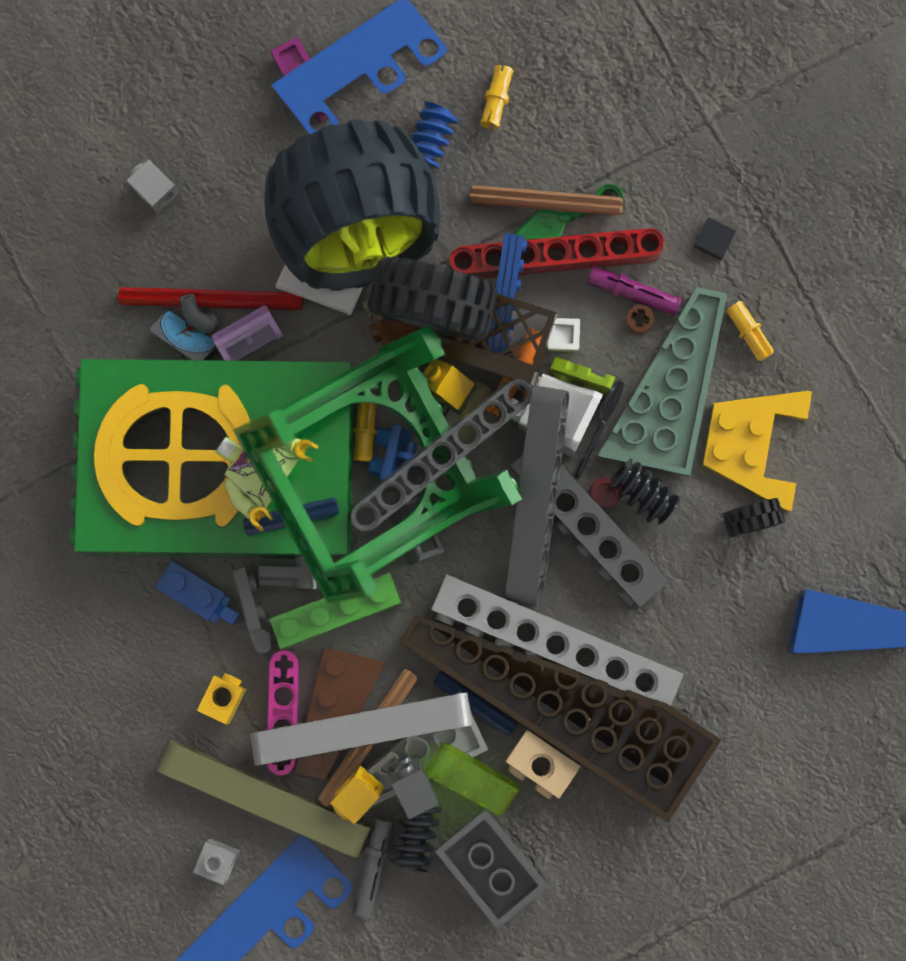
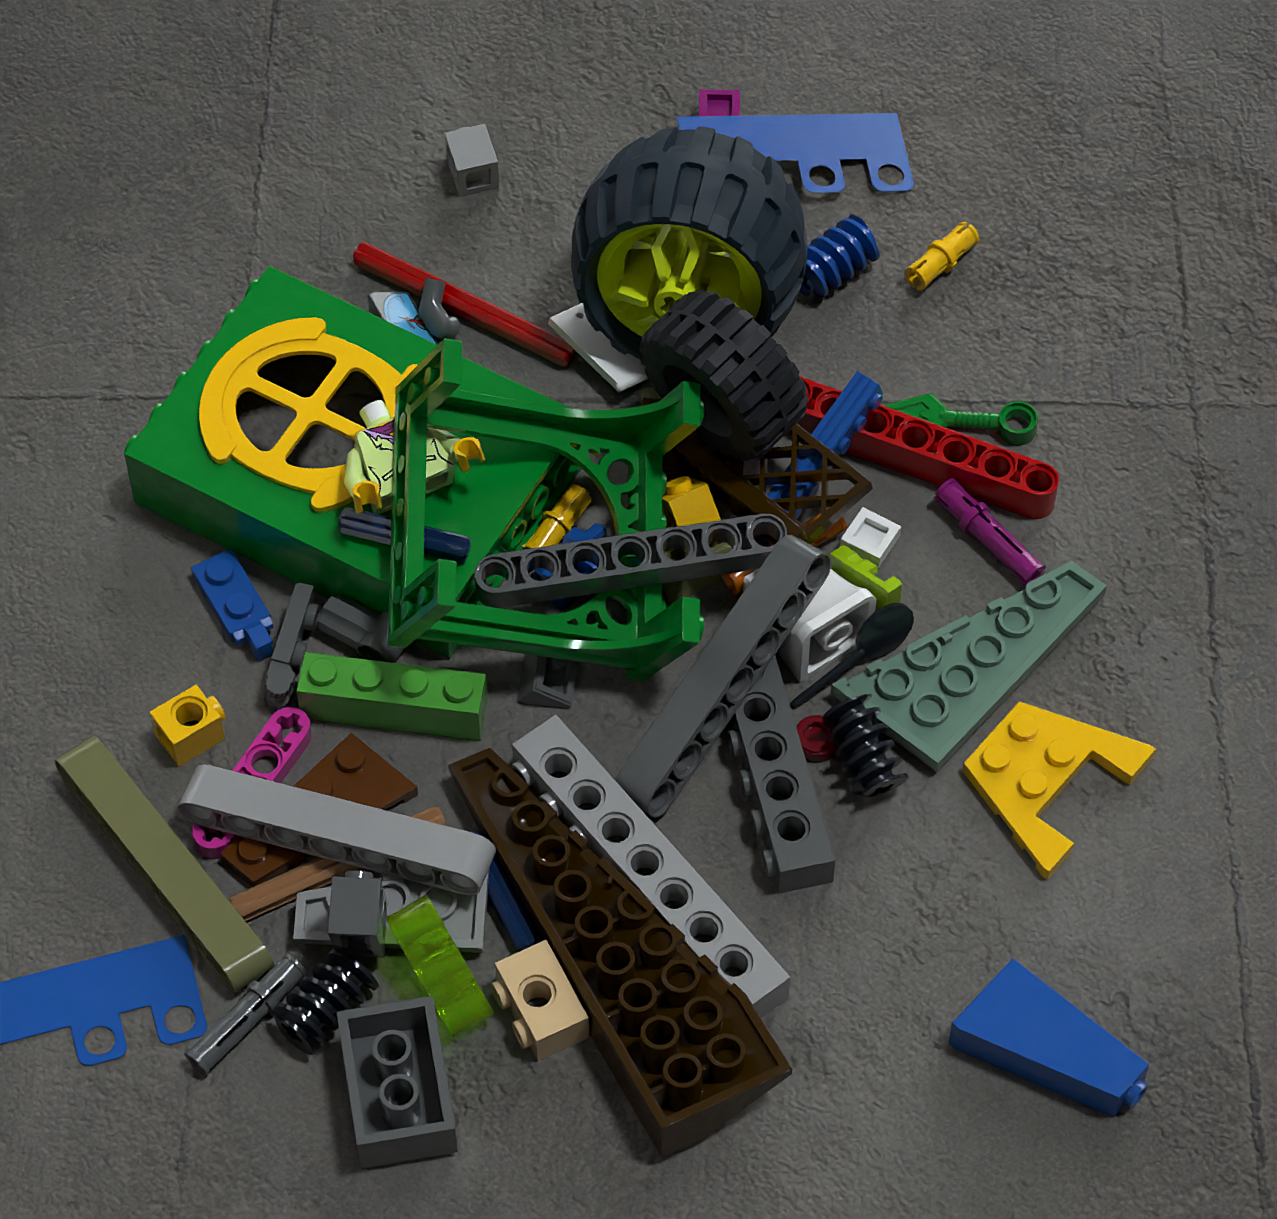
camera: 25 degrees right, 25 degrees down
(216, 861) = (57, 900): light grey brick -> none
(246, 334) = (493, 349): lavender hinge -> none
(356, 795) = (280, 902): yellow brick -> none
(546, 200) = (937, 384): medium nougat axle -> none
(648, 315) = (978, 581): reddish brown bush -> none
(714, 238) = (1127, 527): black tile -> none
(750, 331) = (1113, 643): yellow axle -> none
(753, 517) = (991, 844): black tyre -> none

